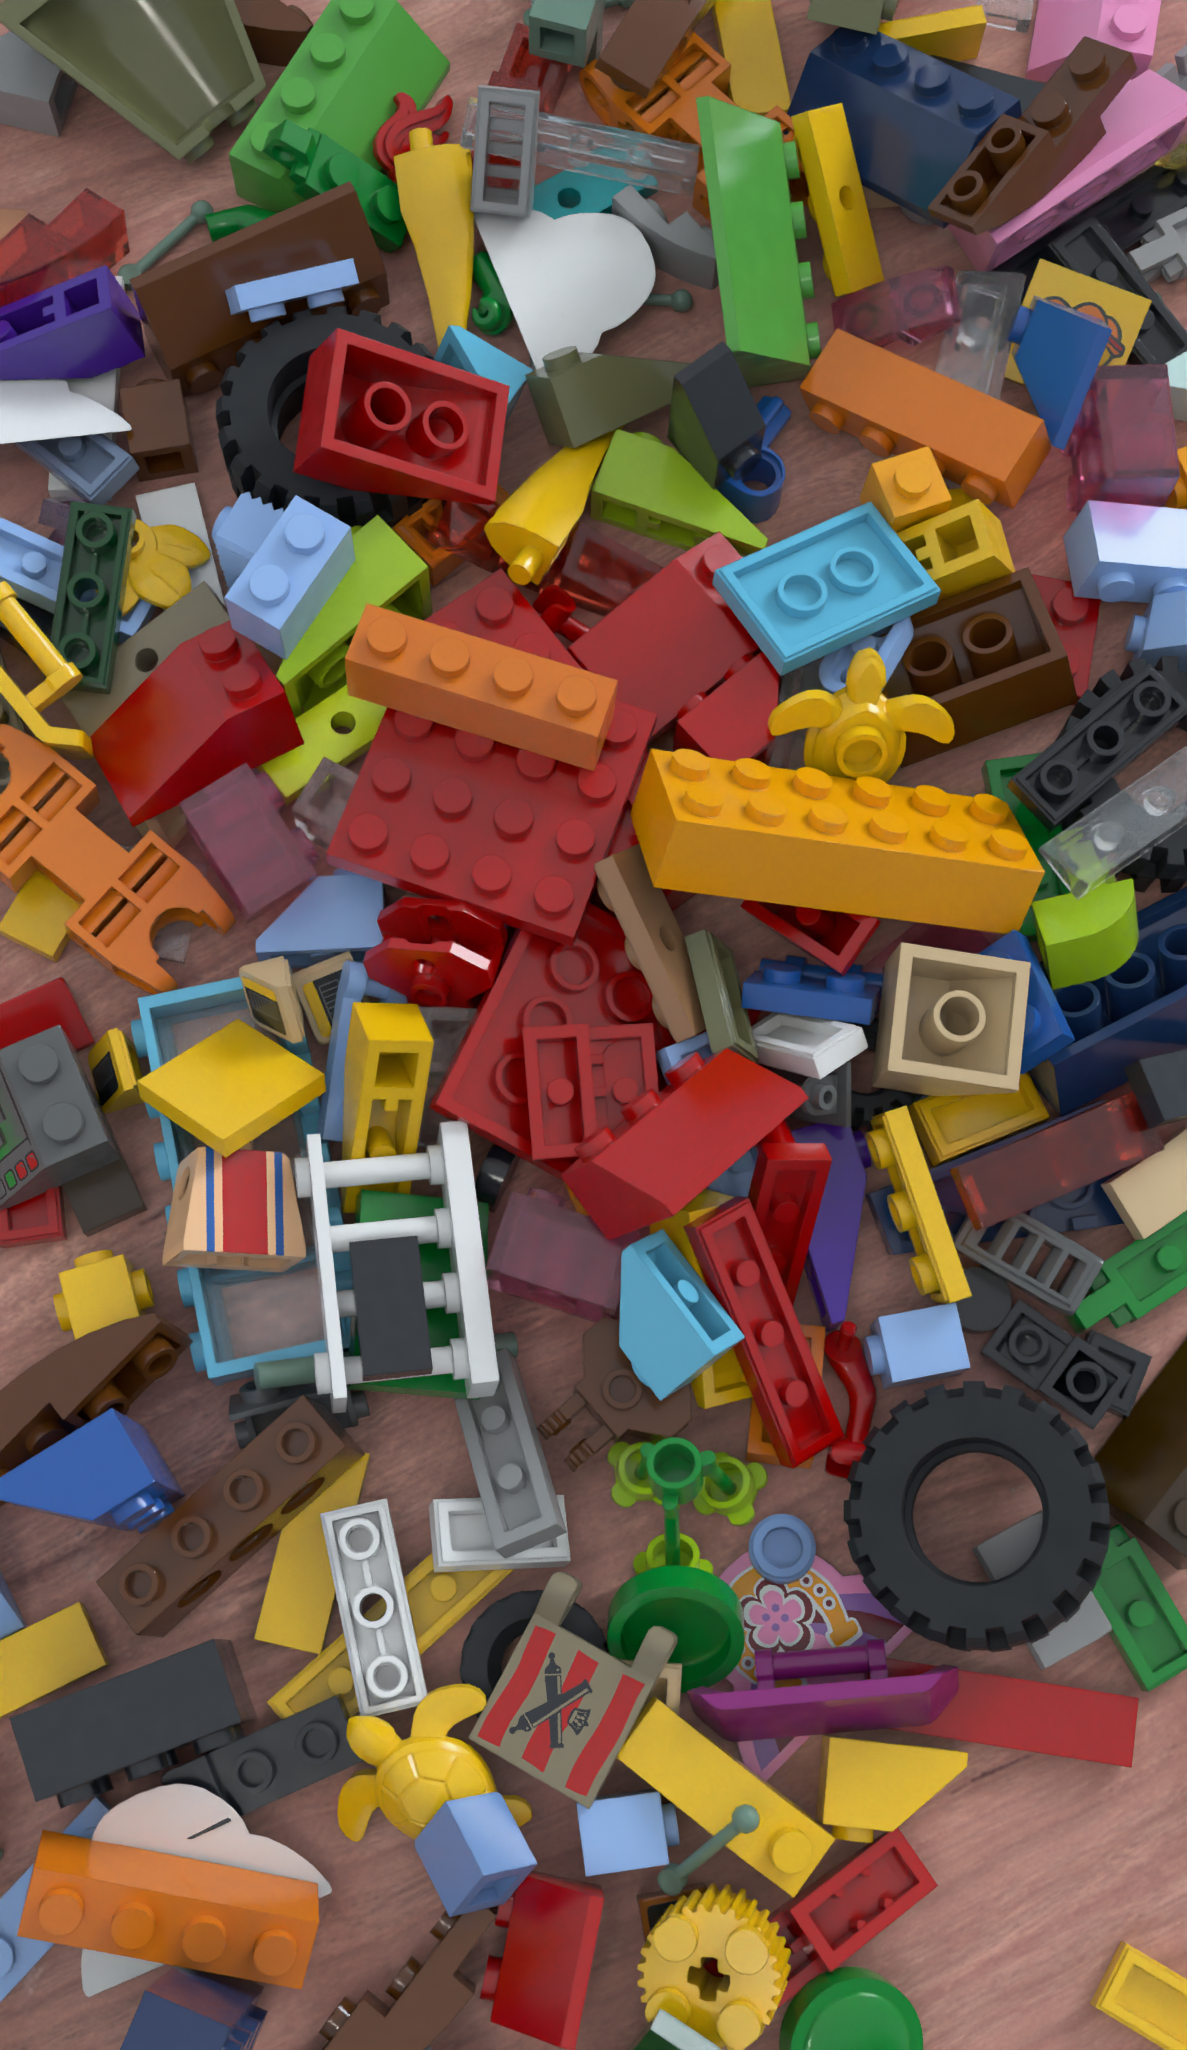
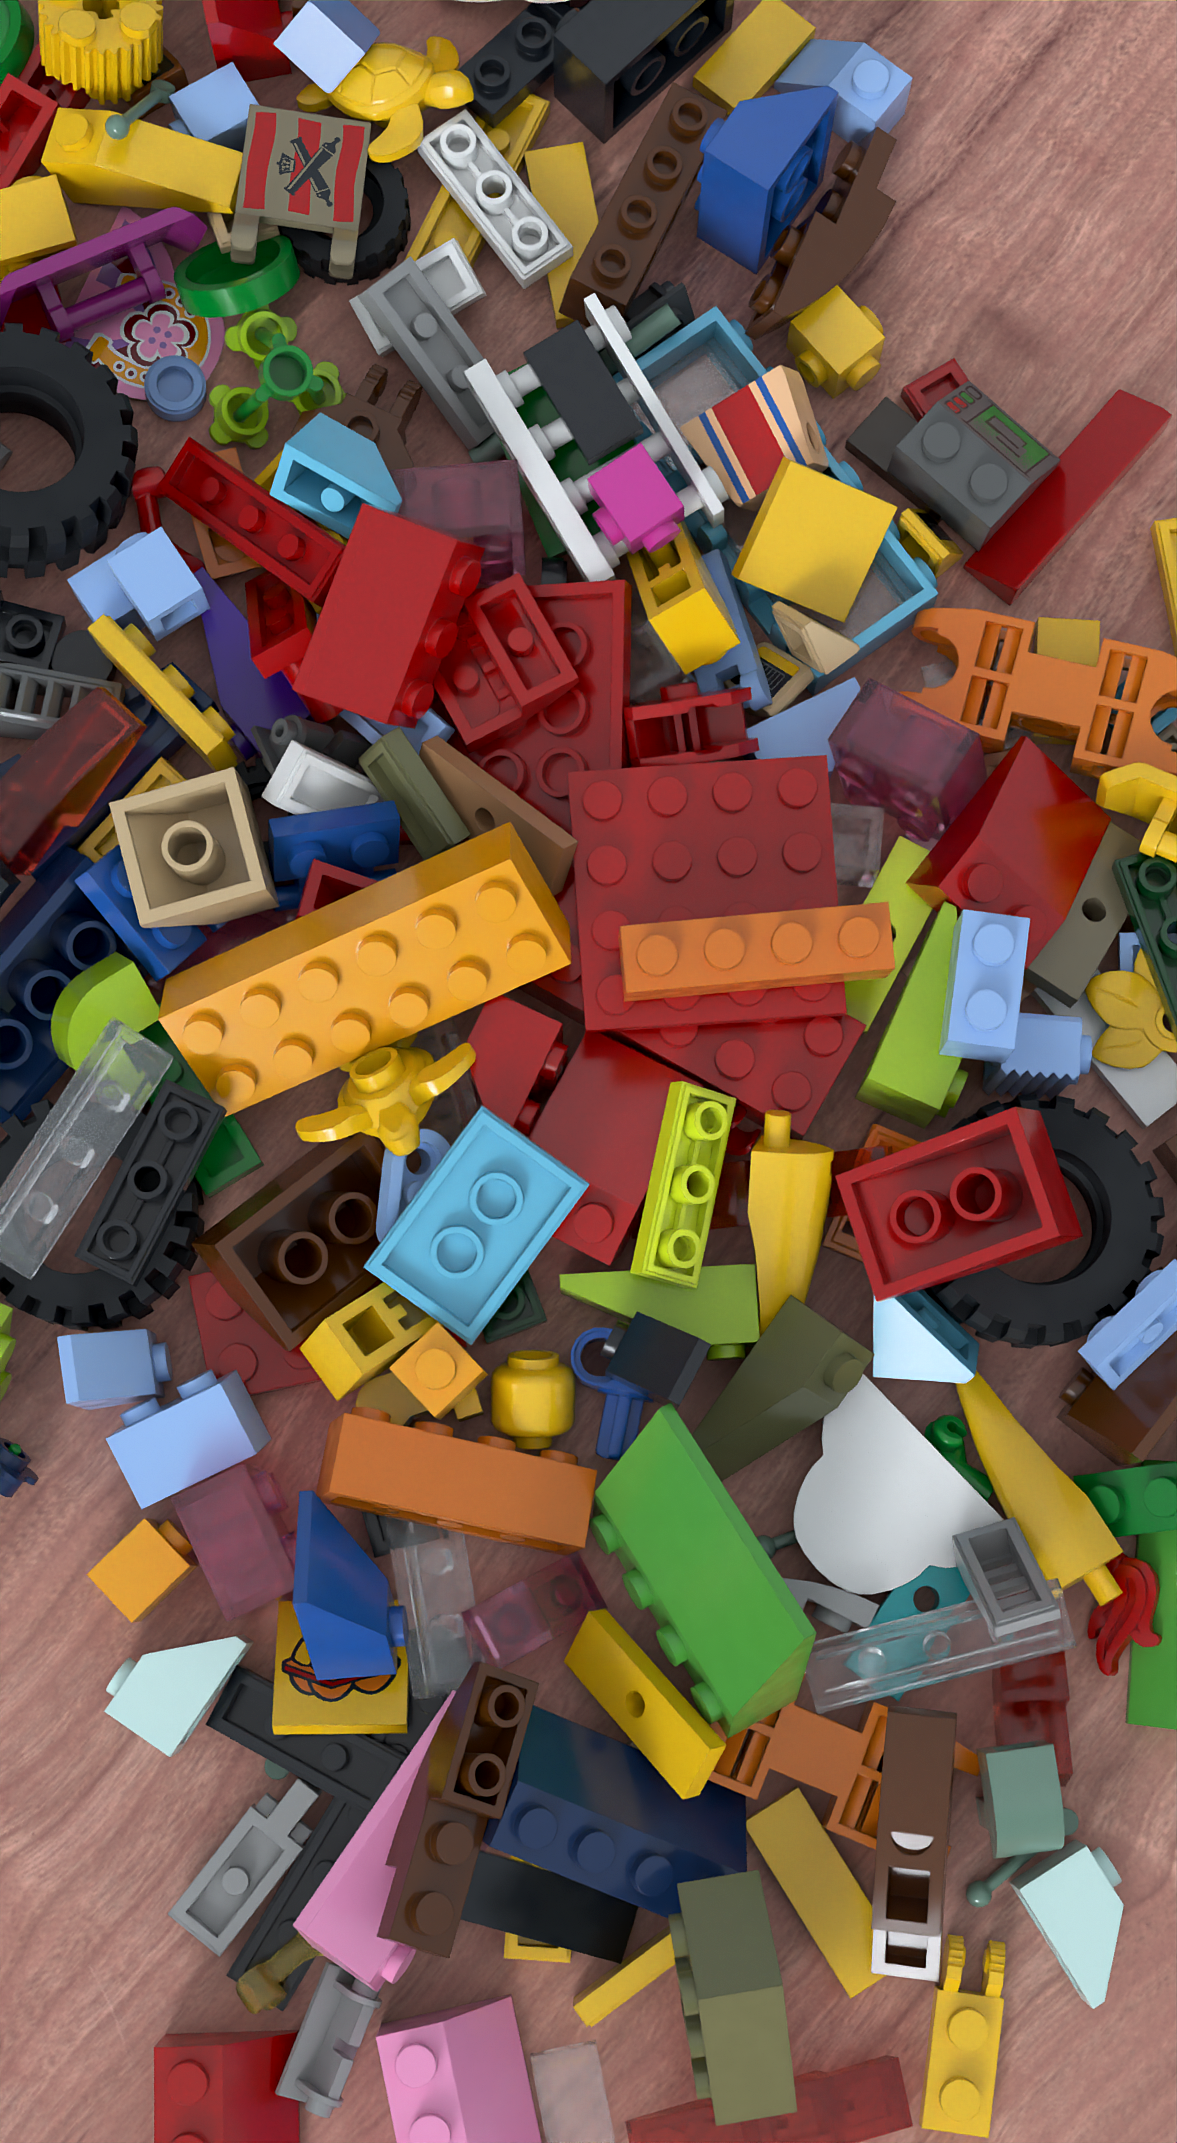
camera: 160 degrees right, 5 degrees up
(390, 1171) = (636, 502): none -> dark pink brick
(626, 565) = (674, 1217): none -> neon yellow tile
(825, 476) = (533, 1398): none -> yellow head
(886, 1309) = (157, 582): none -> light blue brick

